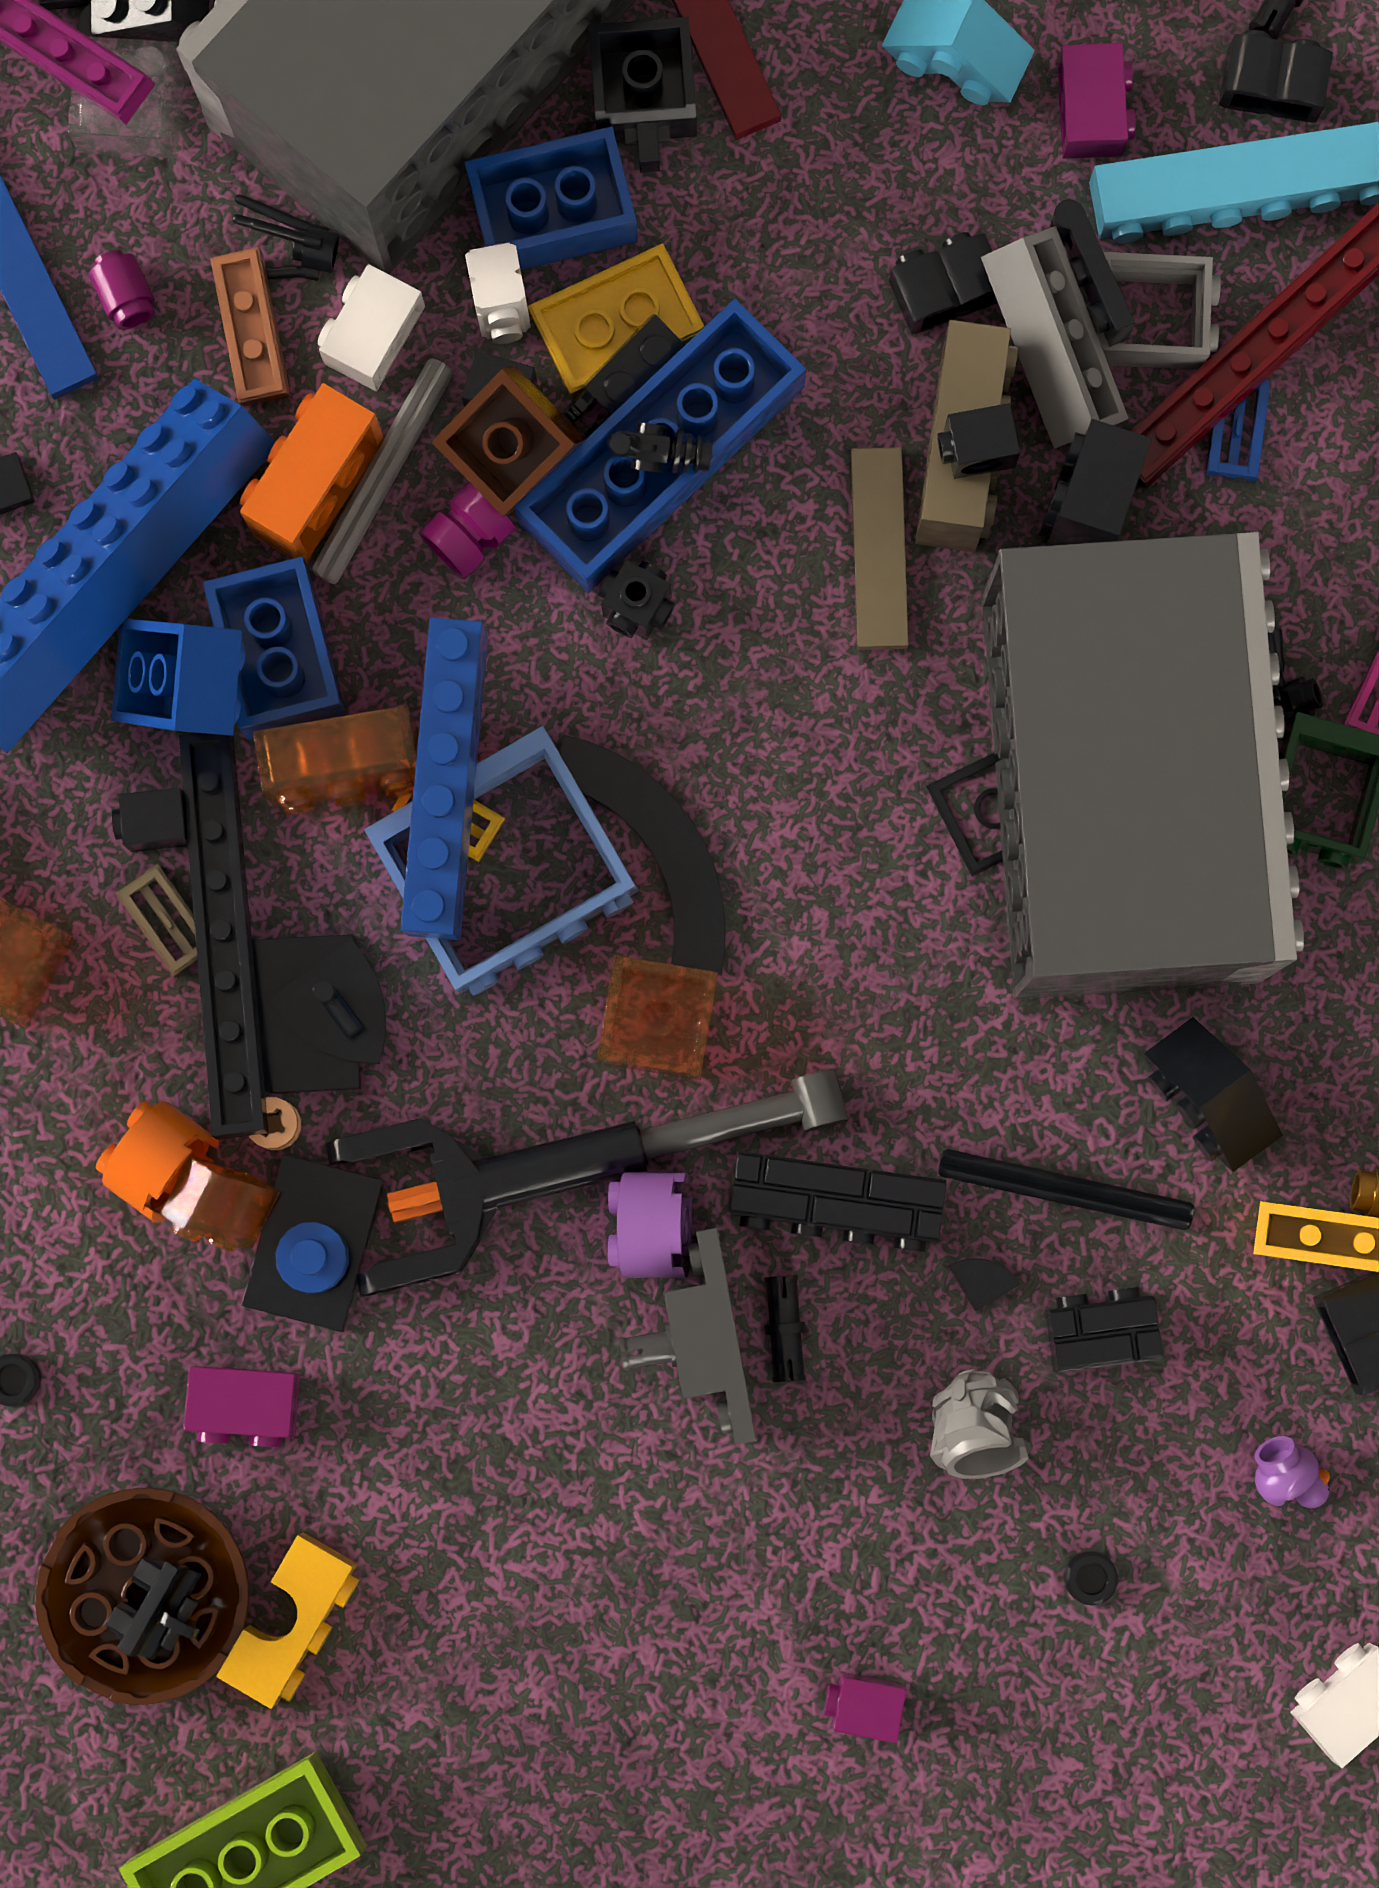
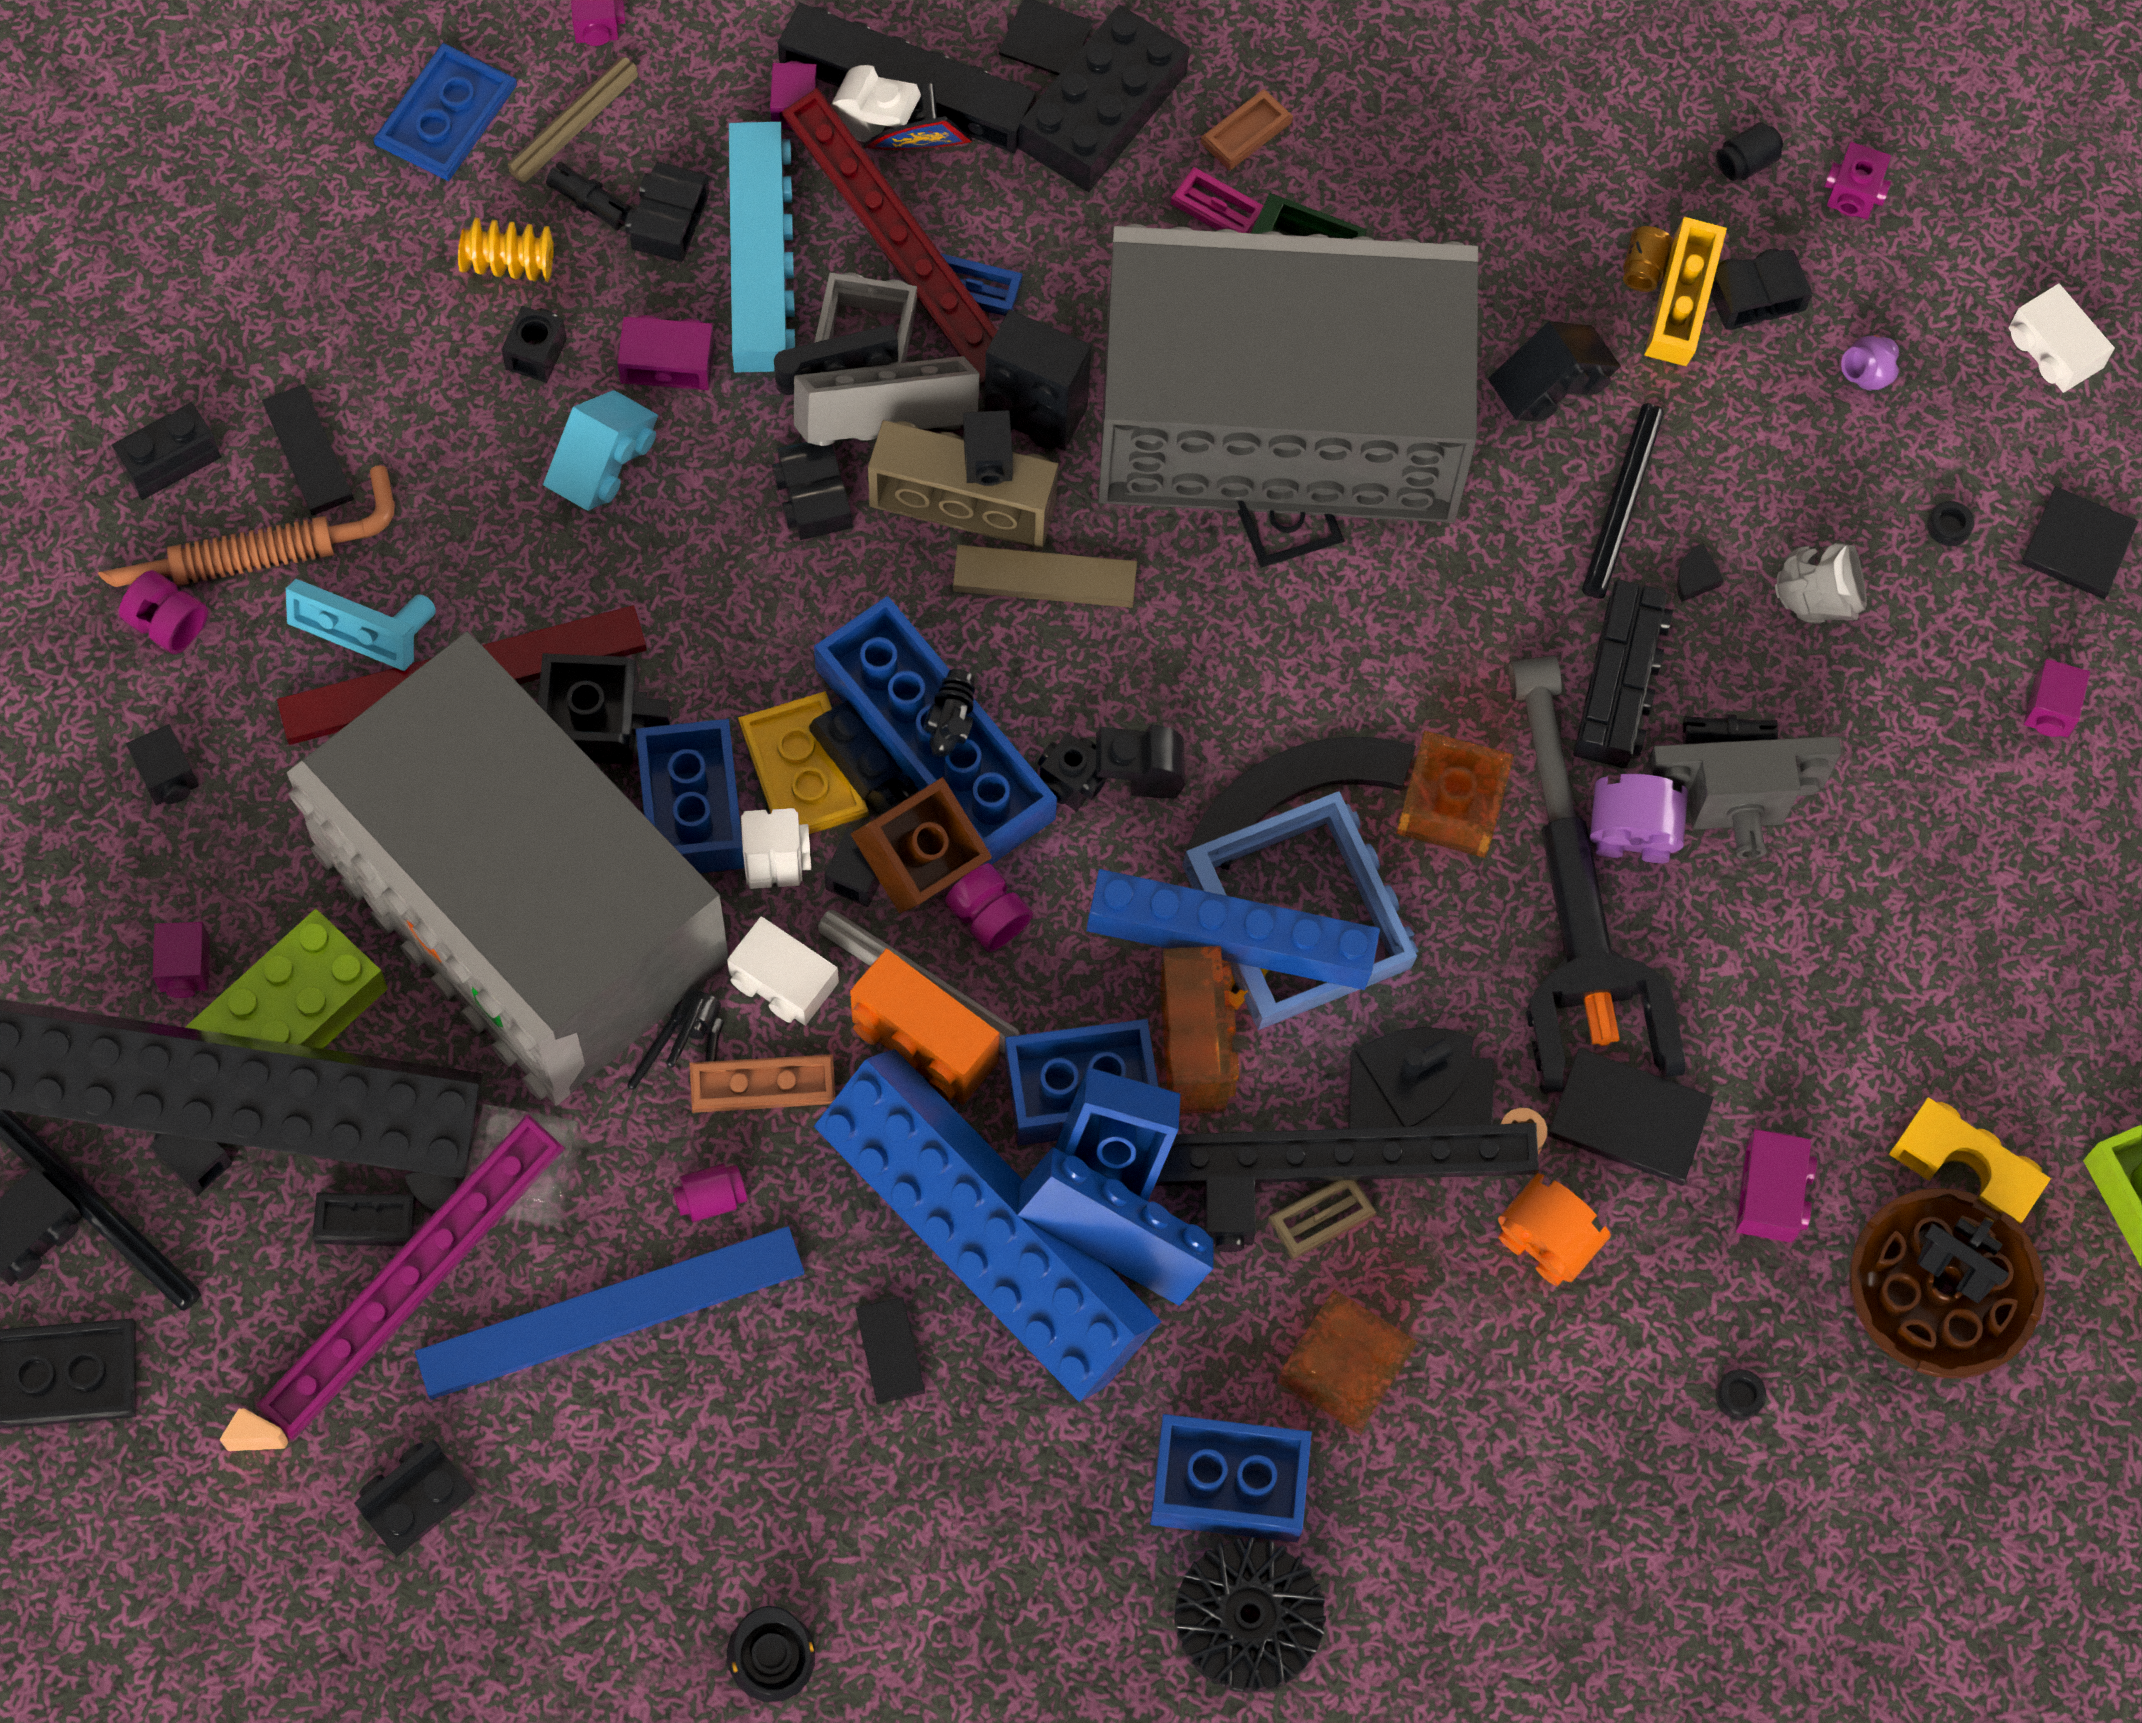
camera: 90 degrees left, 15 degrees down
(100, 693) = (1116, 1226): none -> blue brick
(219, 1205) = (1599, 1176): clear orange brick -> none
(312, 1257) = (1650, 1105): blue piece -> none
(651, 667) = (1147, 758): none -> black brick
(1087, 1734) = (2080, 542): none -> black tile
(1103, 1332) = (1747, 483): black brick -> none

